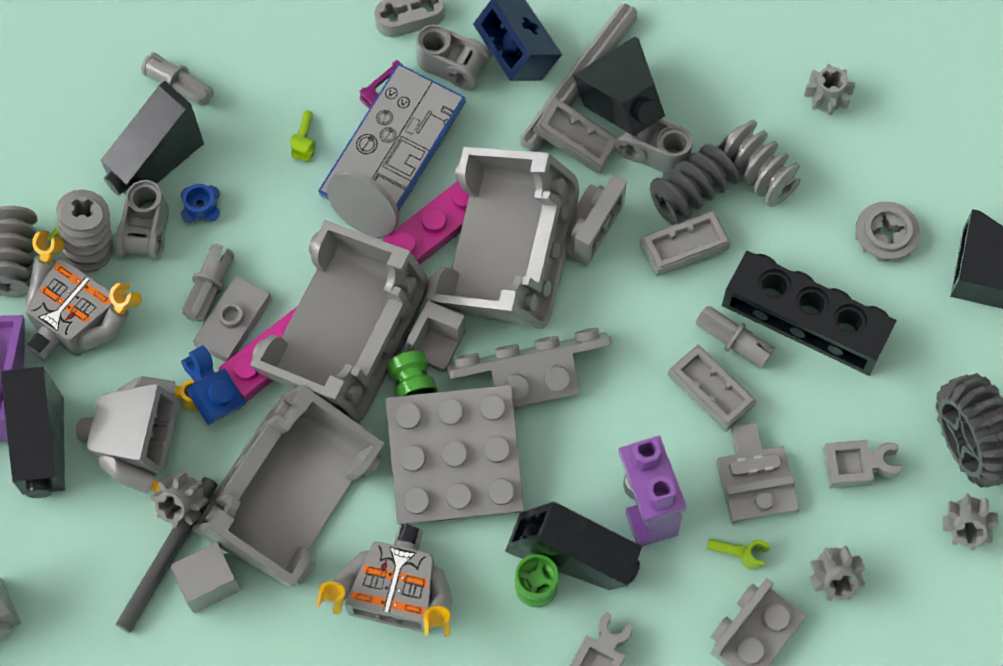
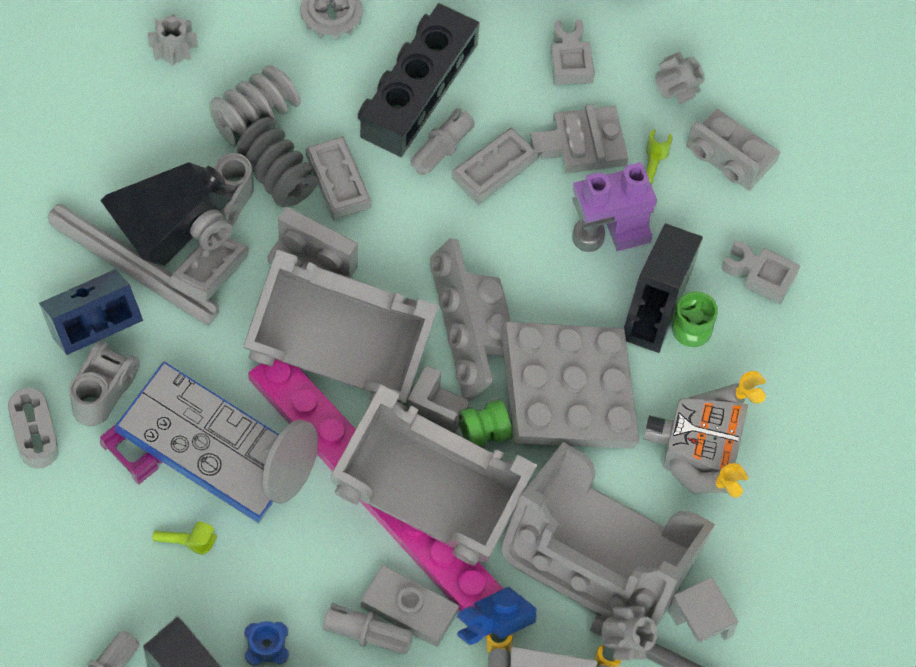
camera: 95 degrees left, 5 degrees down
(604, 125) = (211, 230): none -> light grey bush

